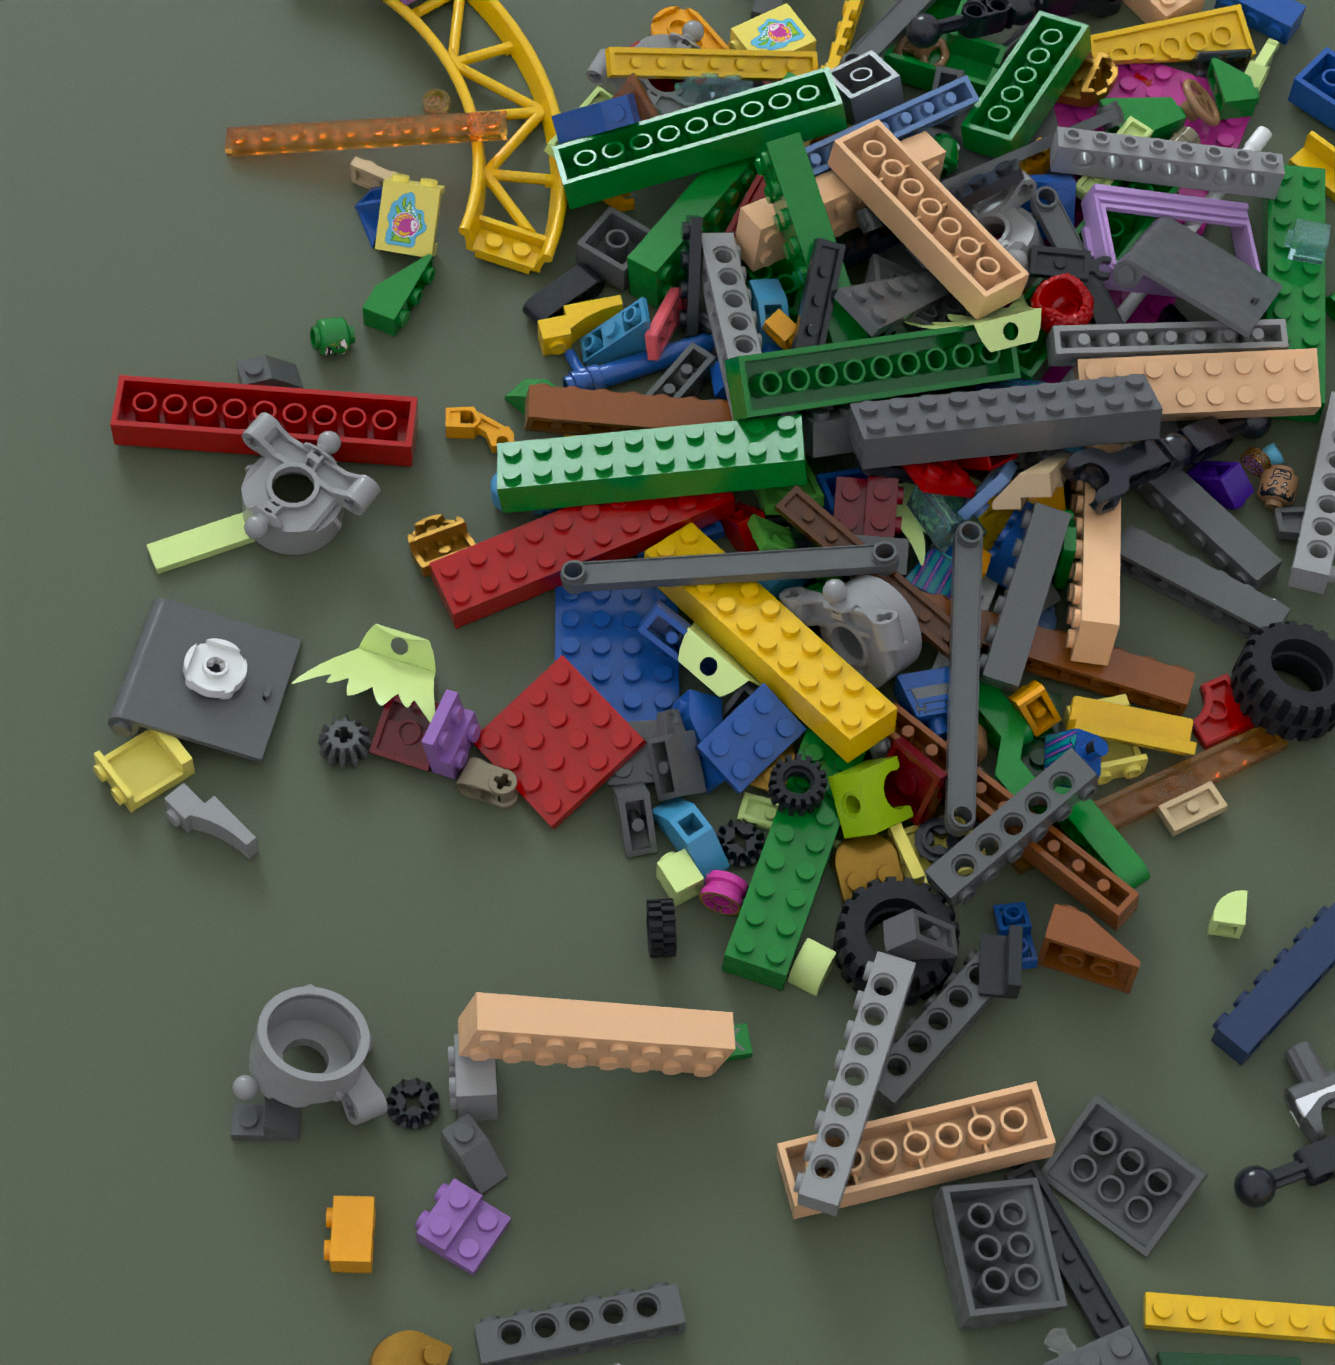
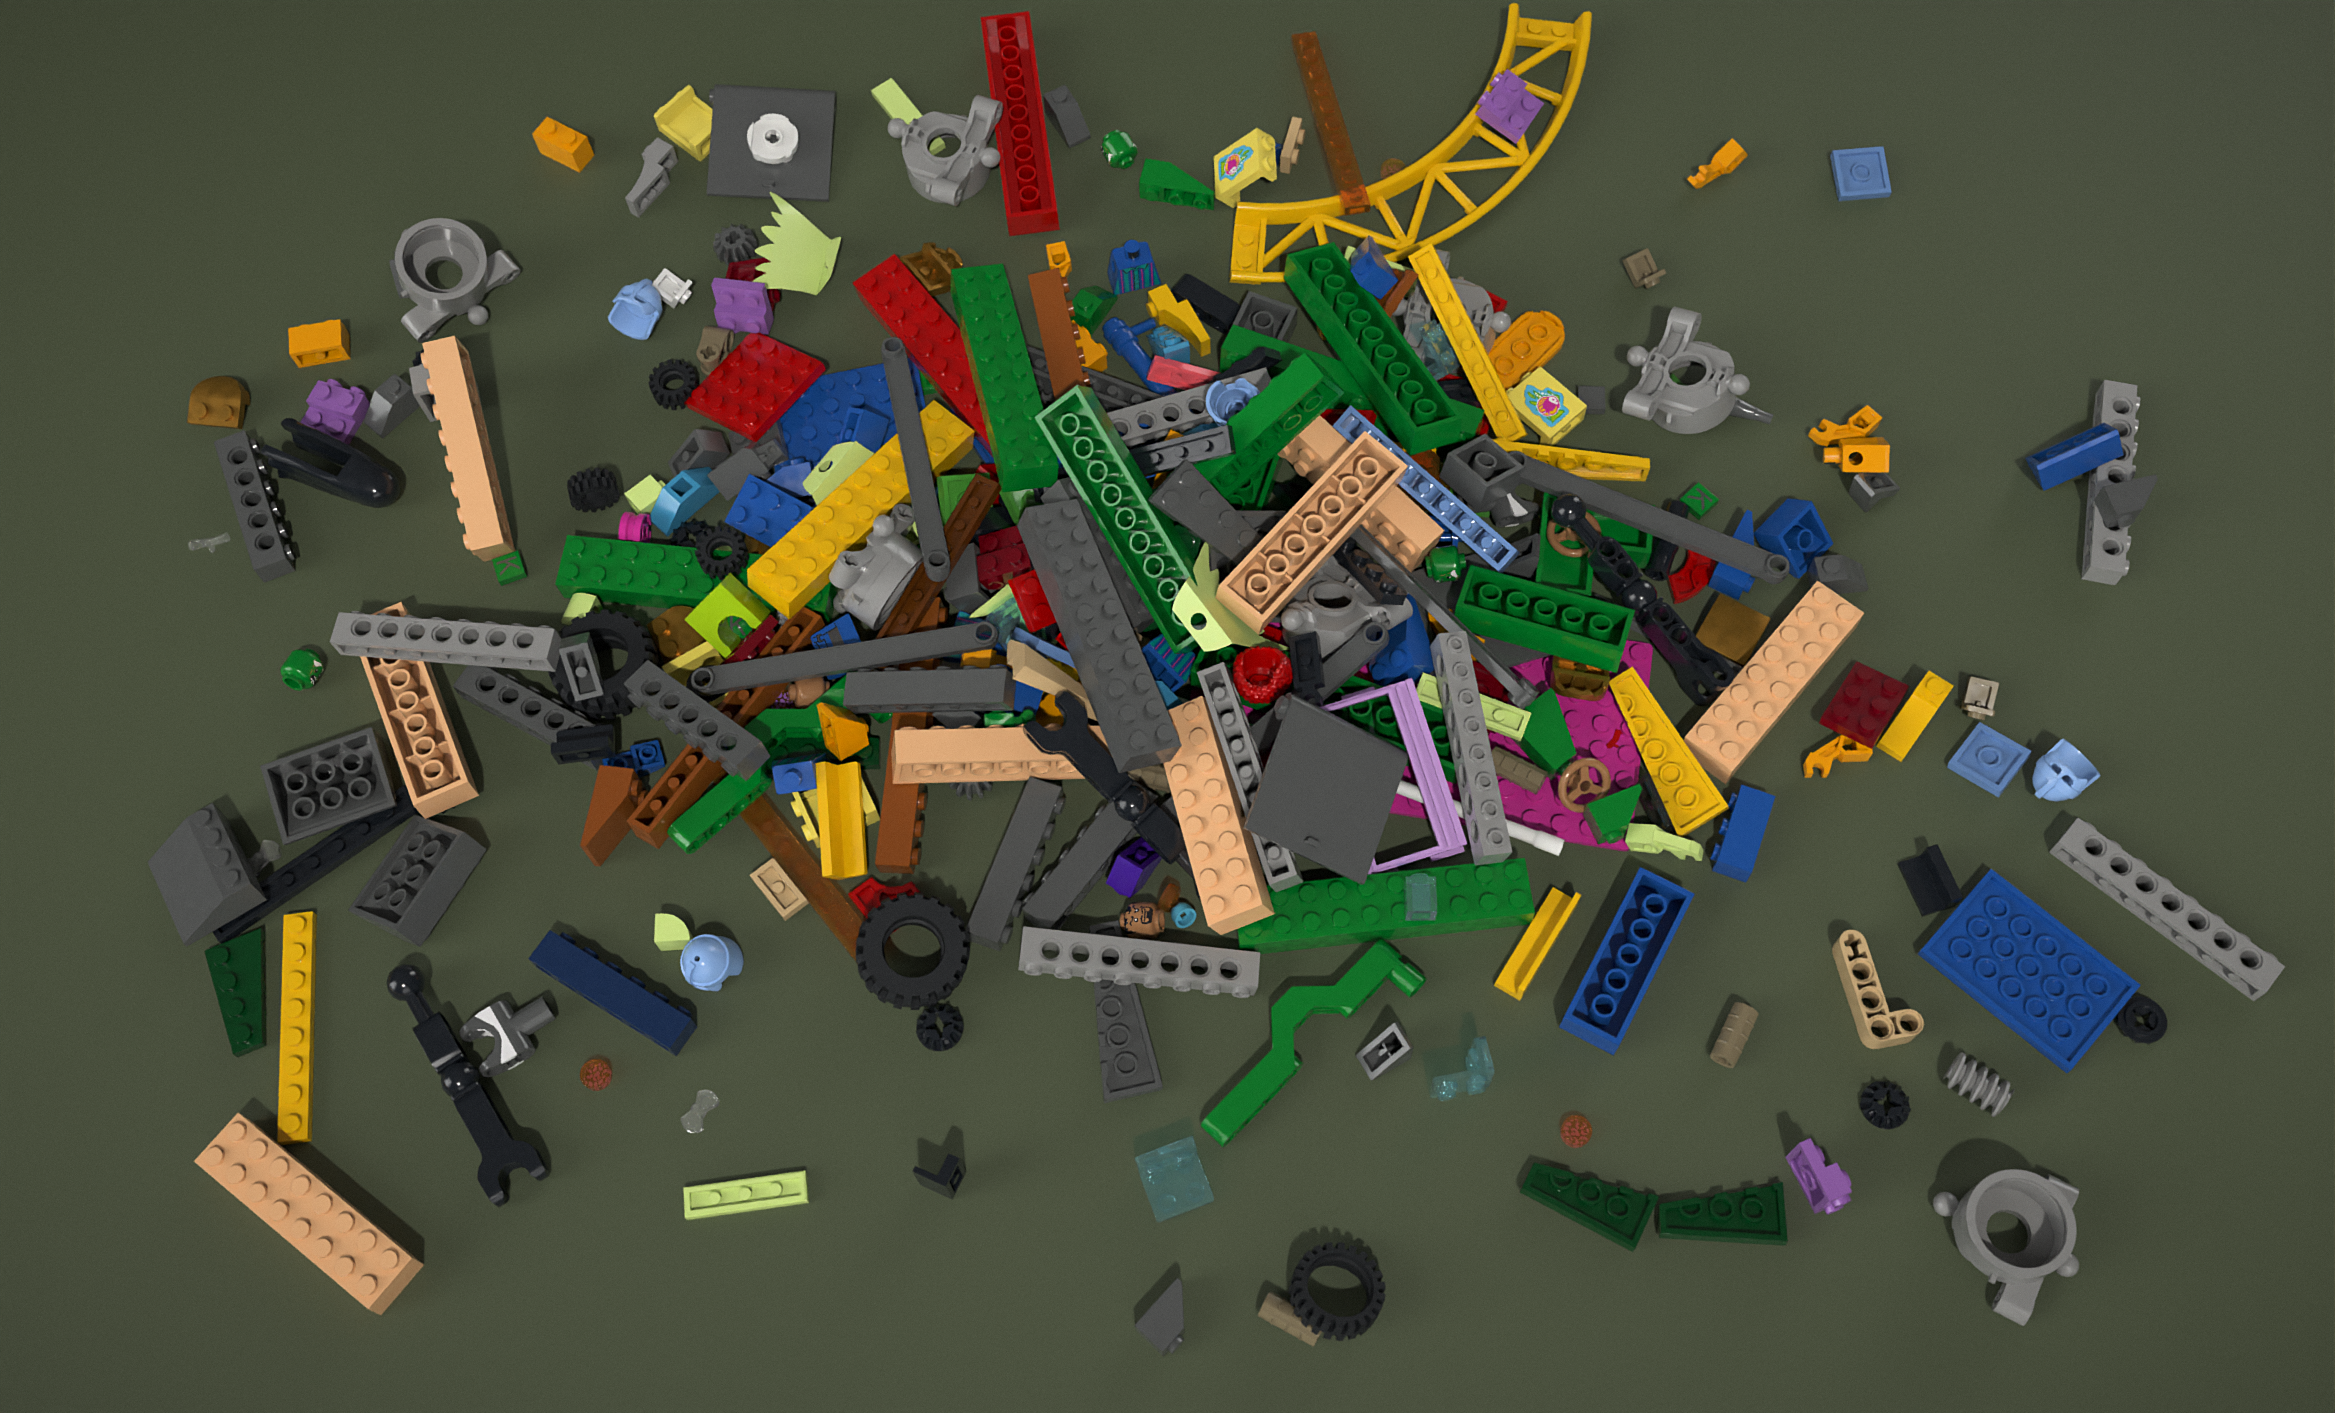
camera: 85 degrees right, 5 degrees up
(129, 913) = (563, 144): none -> light orange brick
(389, 817) = (672, 289): none -> white bracket
(415, 852) = (636, 309): none -> light blue helmet
(503, 343) = (1132, 268): none -> blue torso
(525, 850) = (668, 373): none -> black tyre
(581, 1184) = (359, 480): none -> black piece
(758, 256) = (1225, 397): none -> light blue helmet
(828, 1282) = (302, 669): none -> green head
(1265, 884) = (717, 961): none -> light blue helmet

